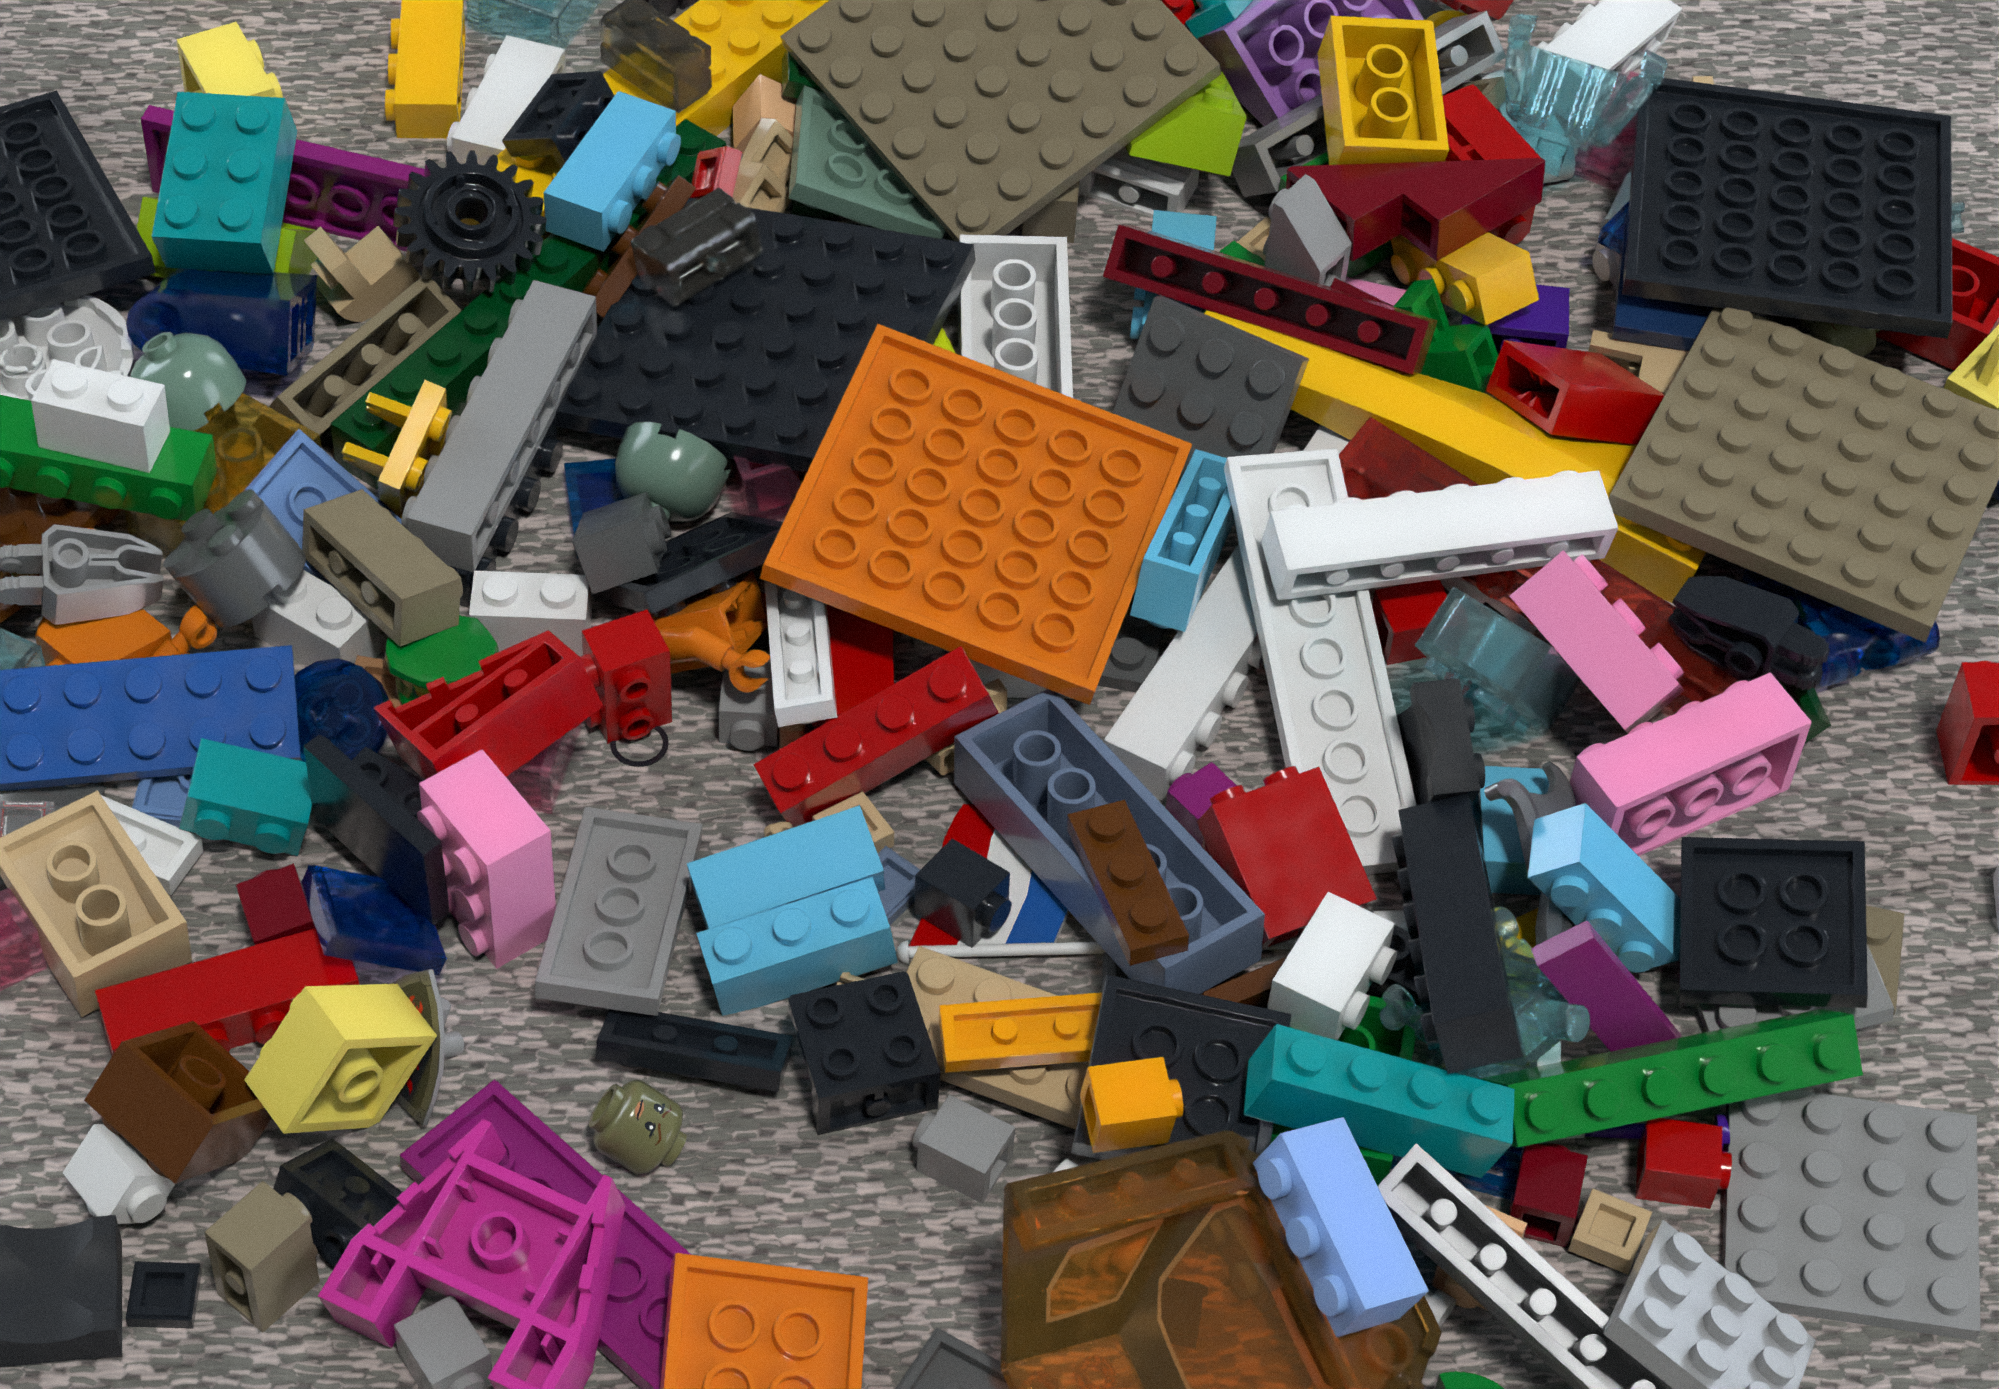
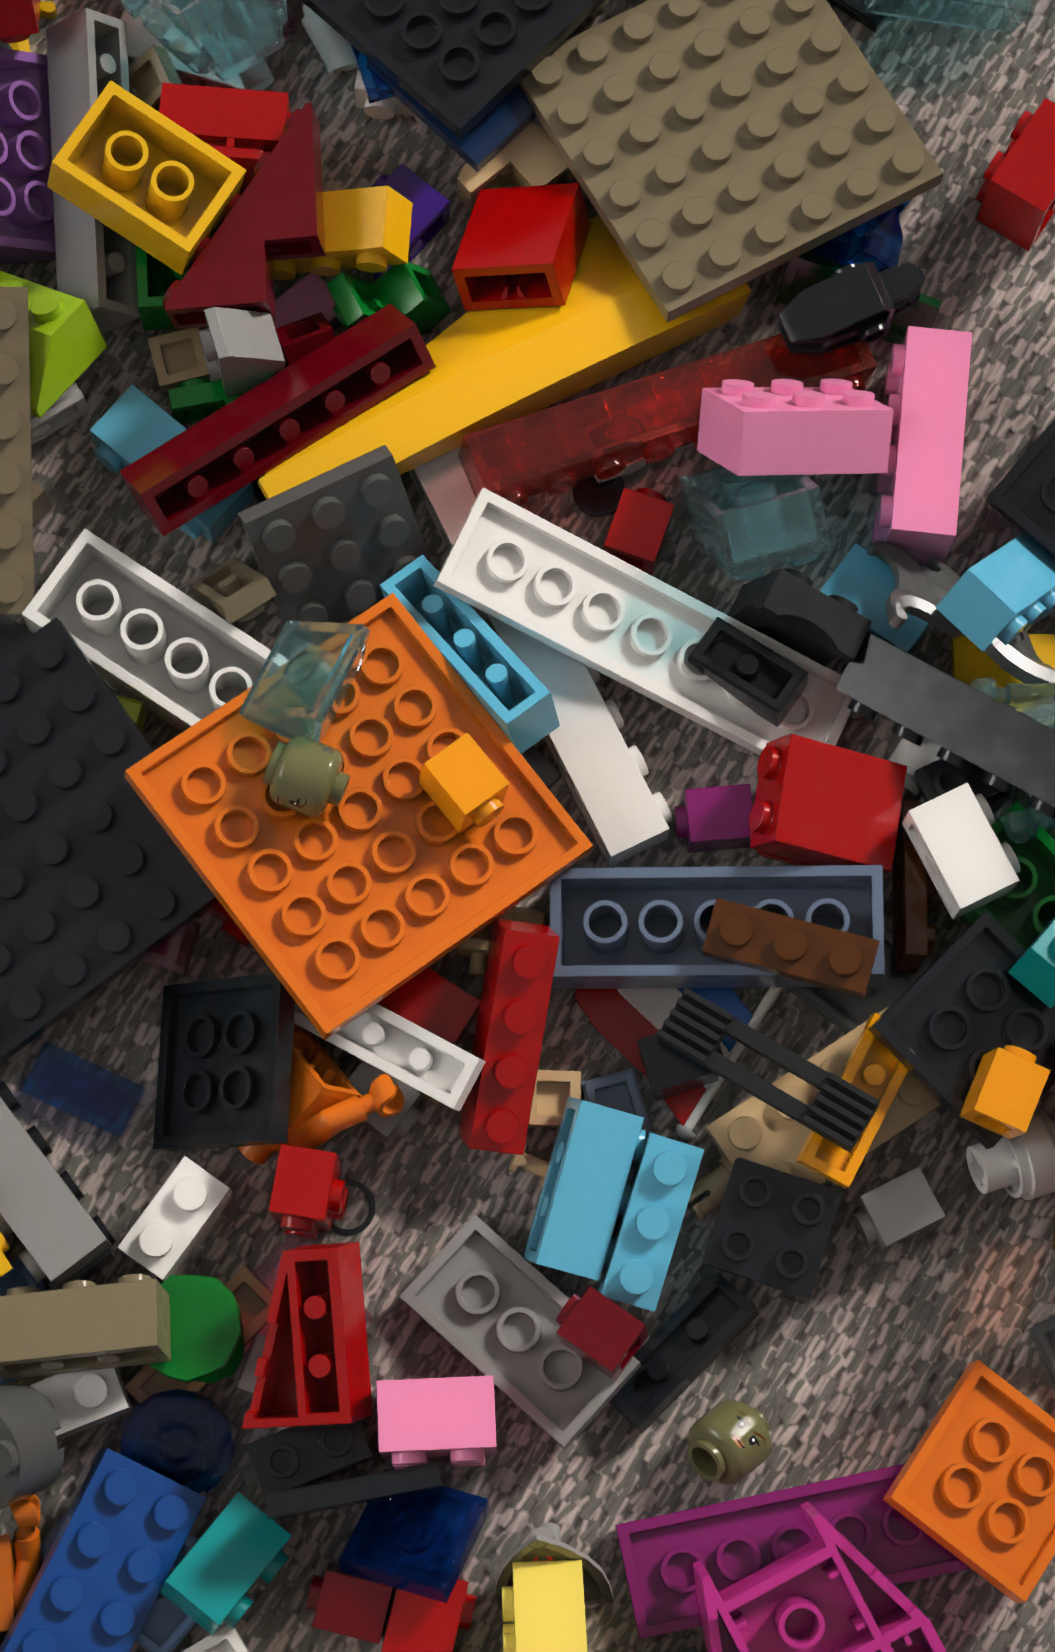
camera: 55 degrees left, 25 degrees up
(621, 542) = (170, 1109): dark grey brick -> none
(659, 943) = (600, 1332): none -> dark red brick
(676, 472) = (113, 1024): sand green cylinder -> none
(974, 435) = (306, 776): none -> olive head
(1001, 998) = (838, 1110): none -> black container
(1061, 410) = (306, 678): none -> clear light blue slope
(1064, 551) = (464, 784): none -> light orange brick
(1100, 367) = (233, 591): none -> dark tan plate
(1358, 750) = (749, 671): none -> black slope
(1437, 534) = (621, 474): white brick -> none

